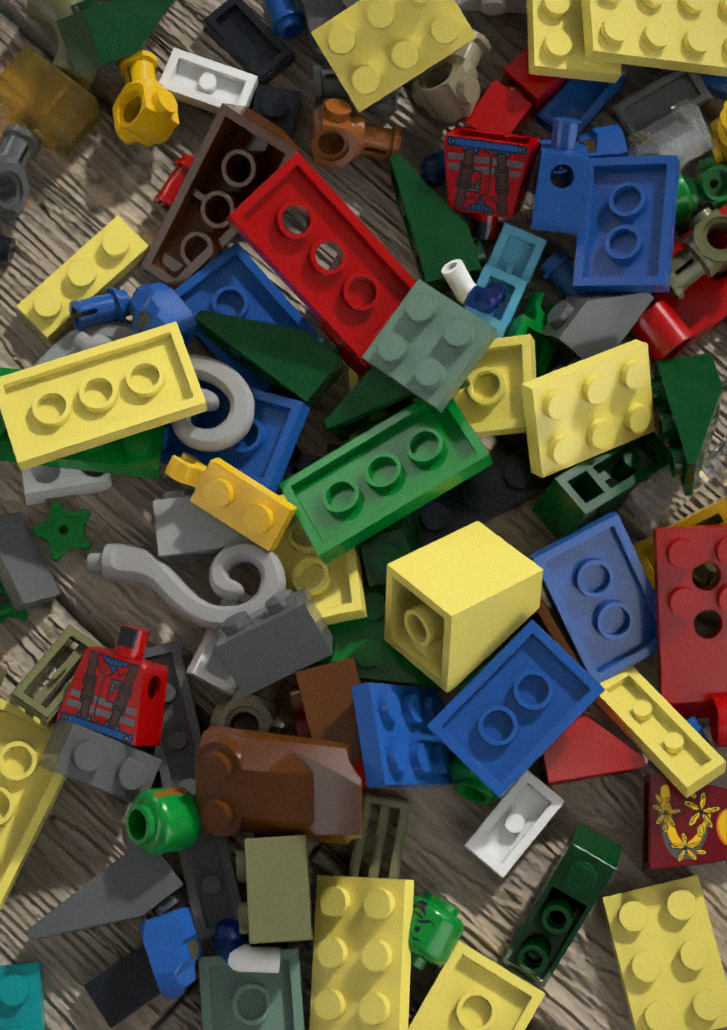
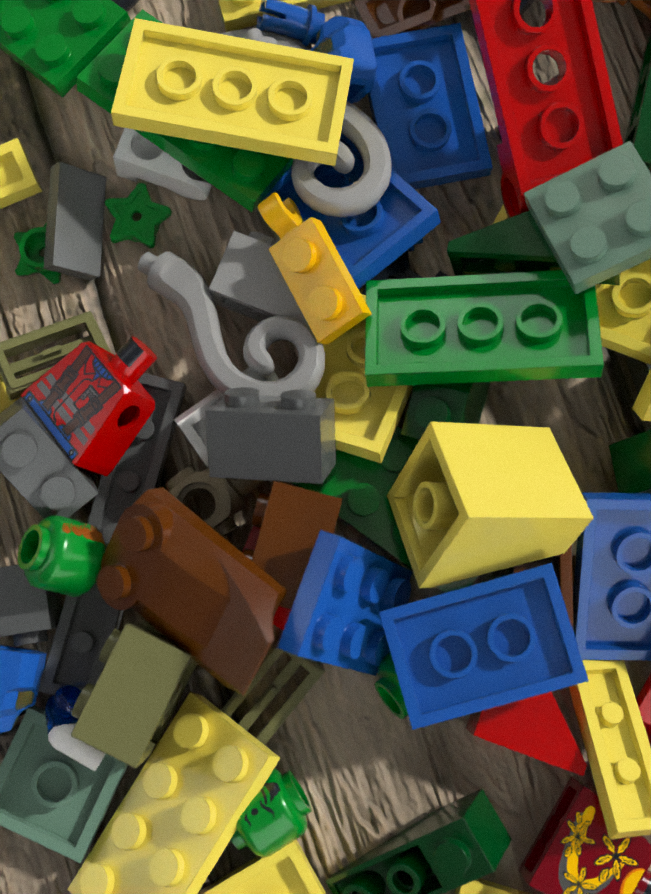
camera: 30 degrees right, 5 degrees up
(278, 355) = (437, 150): dark green slope -> none
(481, 497) = (565, 405): black plate -> none
(514, 824) = (411, 757): white plate -> none

